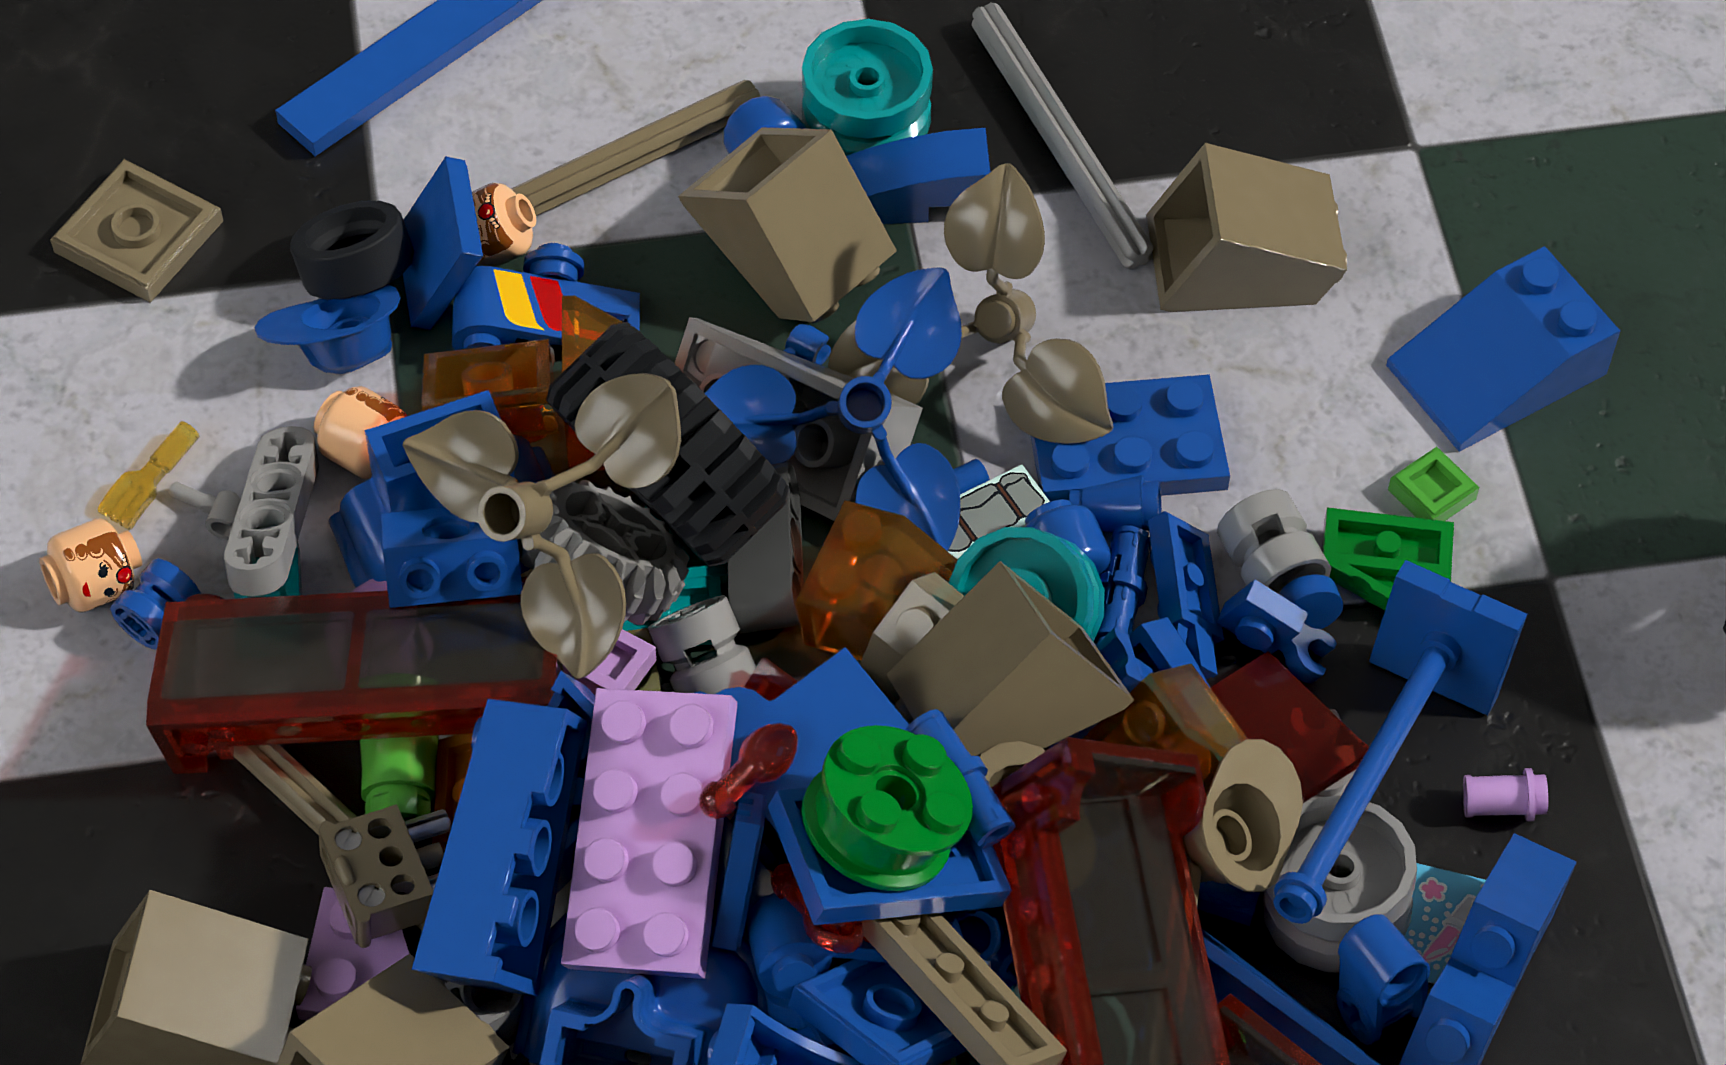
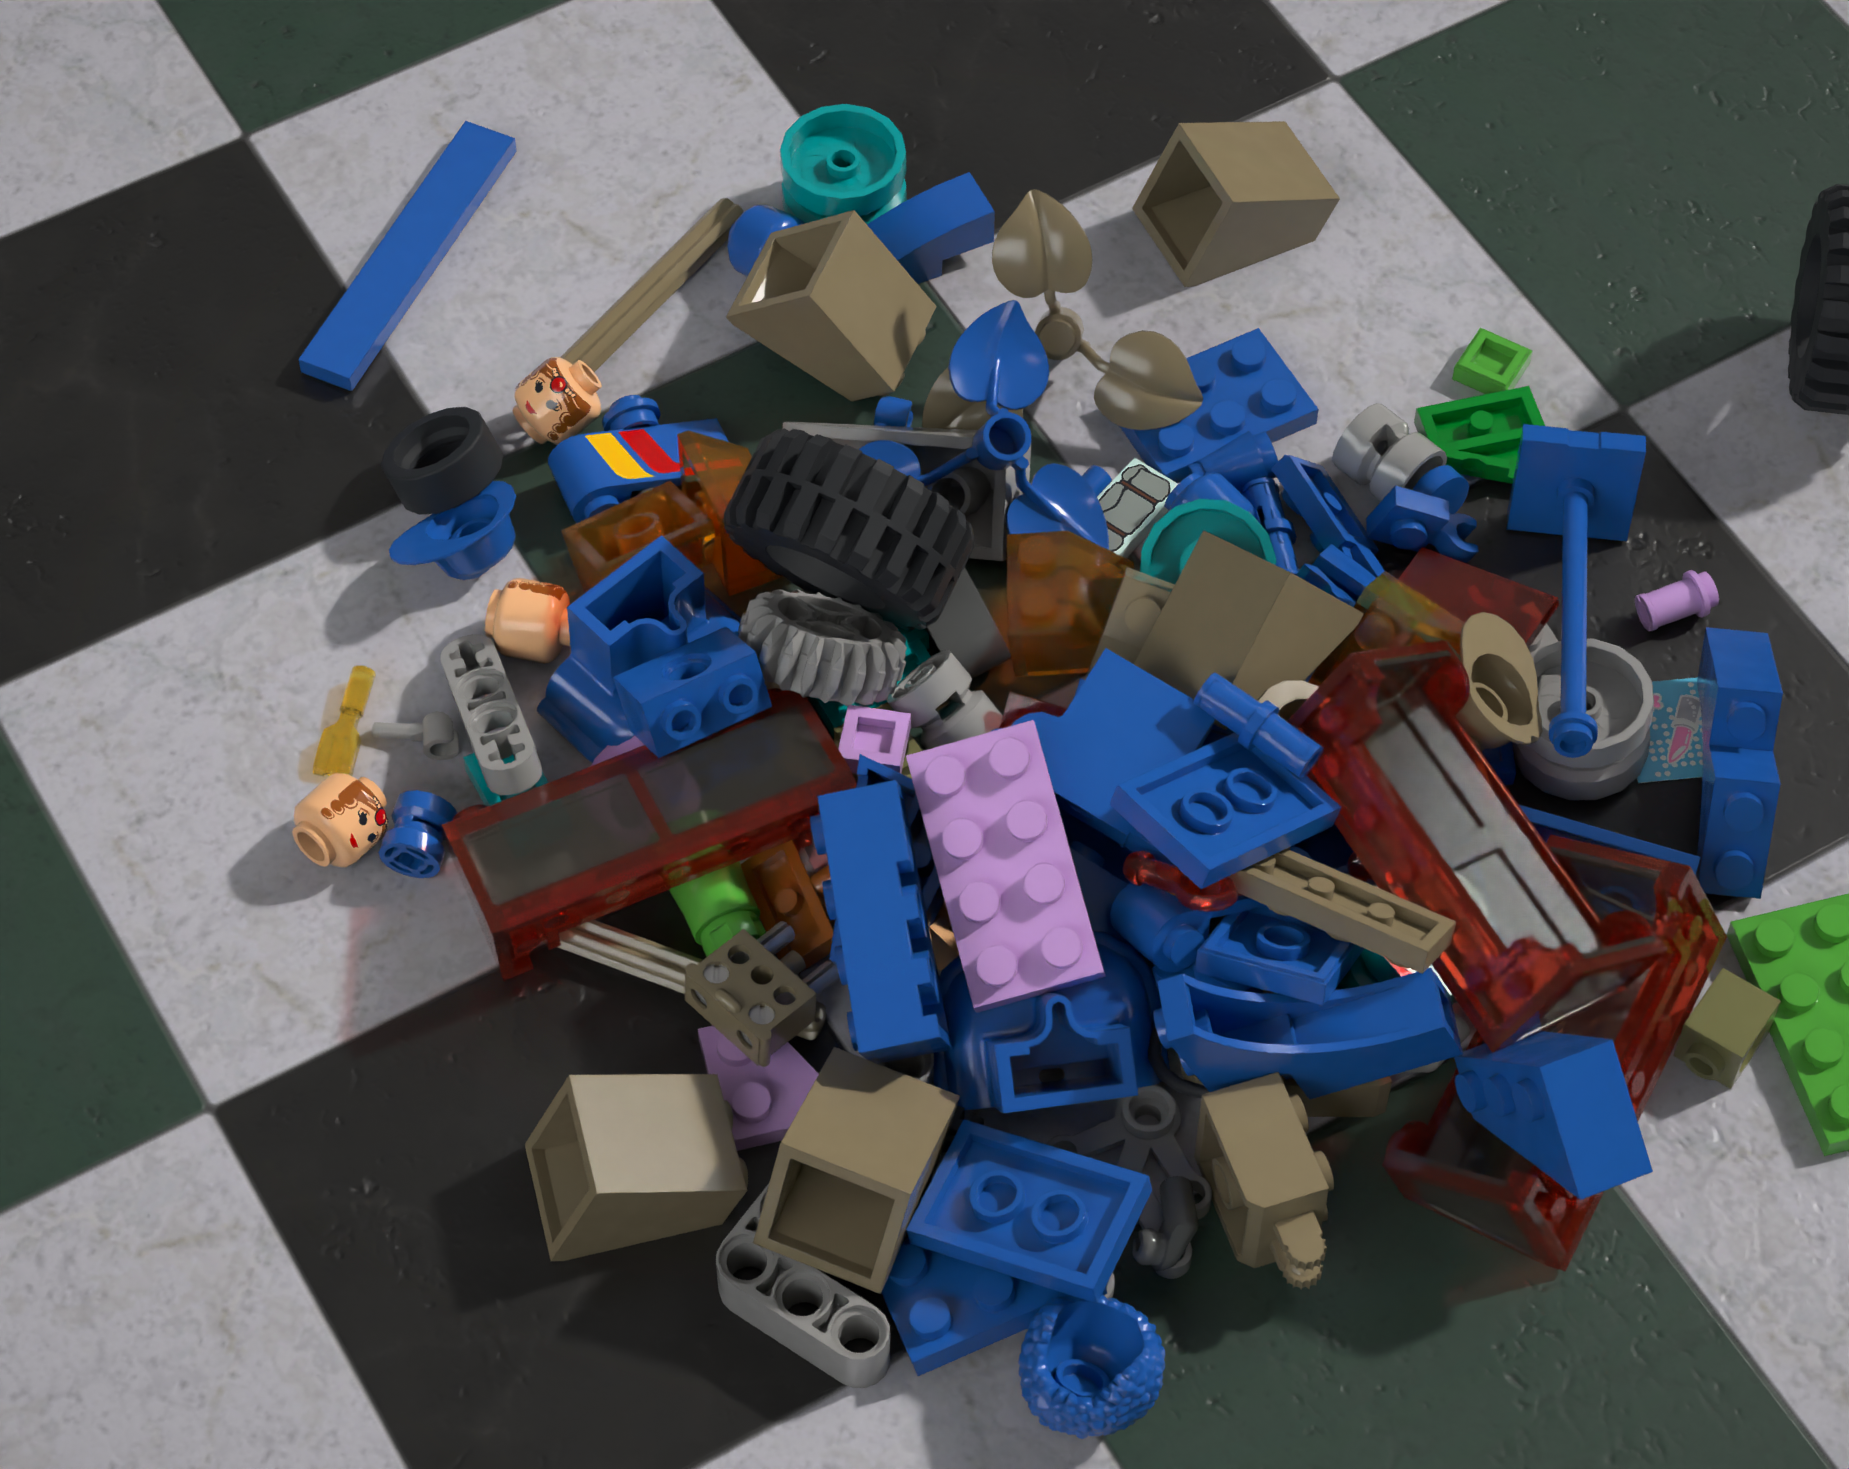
camera: 20 degrees left, 0 degrees up
(137, 230) = (219, 510): dark tan tile -> none
(444, 242) = (528, 424): blue tile -> none
(468, 464) = (838, 696): dark tan plant -> none
(739, 871) = (1097, 868): blue tile -> none
(761, 759) = (1082, 767): clear red piece -> none
(887, 807) = (1219, 767): green wheel -> none
(1062, 136) = (1026, 161): light grey axle -> none
(1379, 978) = (1655, 785): blue piece -> none
(1506, 350) = (1501, 226): blue slope -> none

